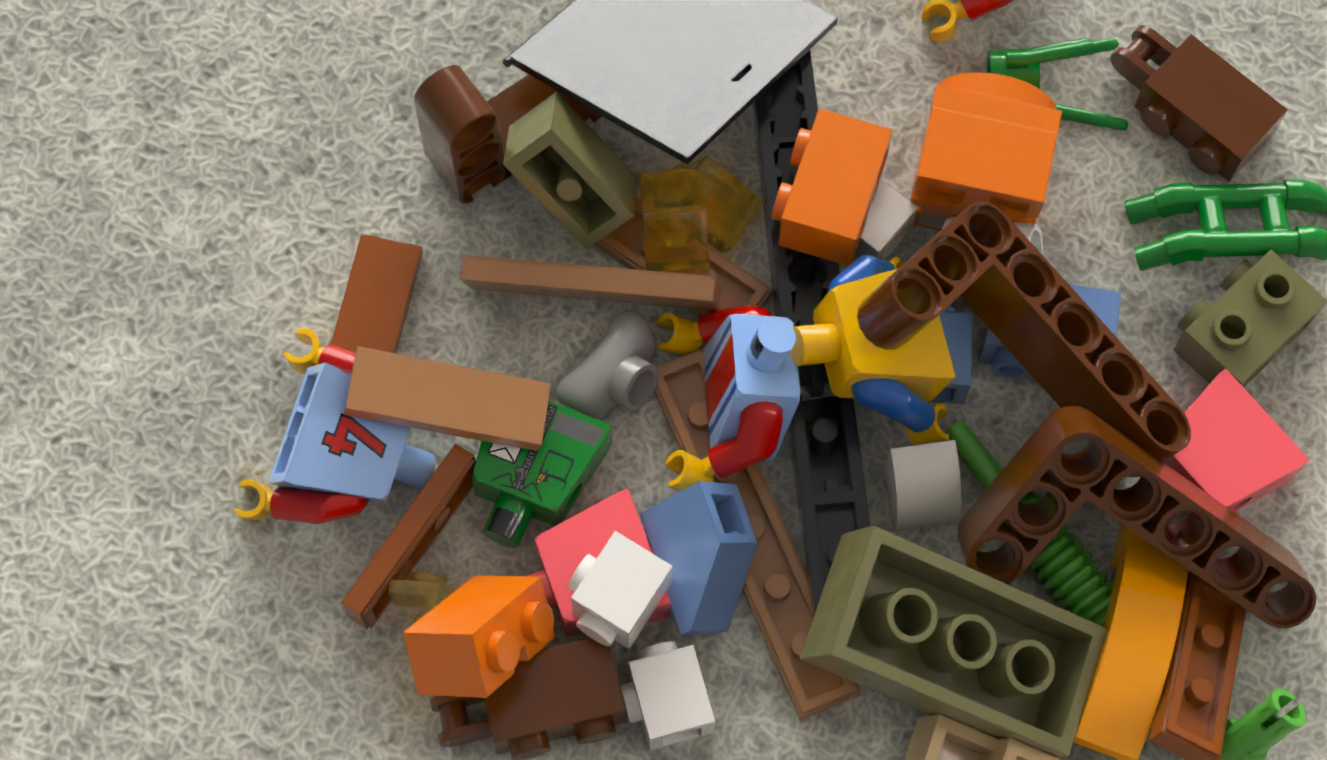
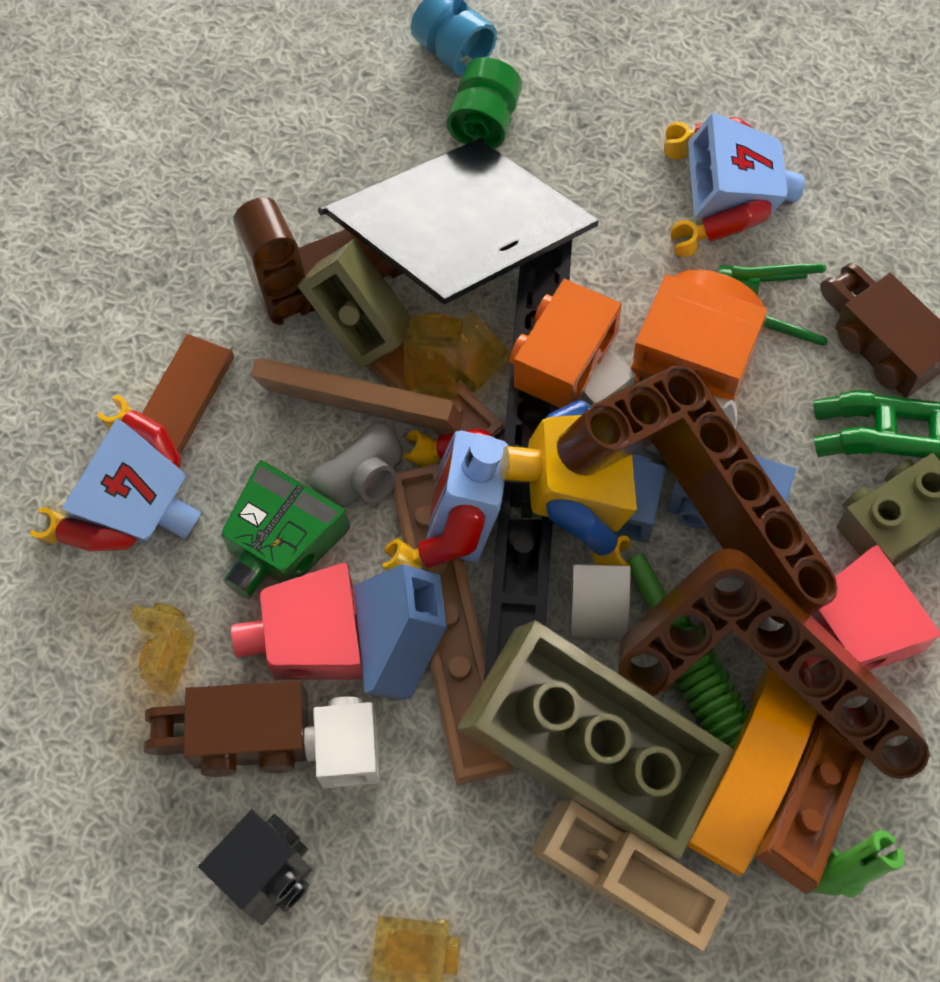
camera: 15 degrees right, 5 degrees down
(411, 537) = (162, 575): dark orange tile -> none
(447, 398) = (210, 464): medium nougat tile -> none
(479, 635) = (186, 660): orange brick -> none
(618, 590) = (314, 644): white brick -> none

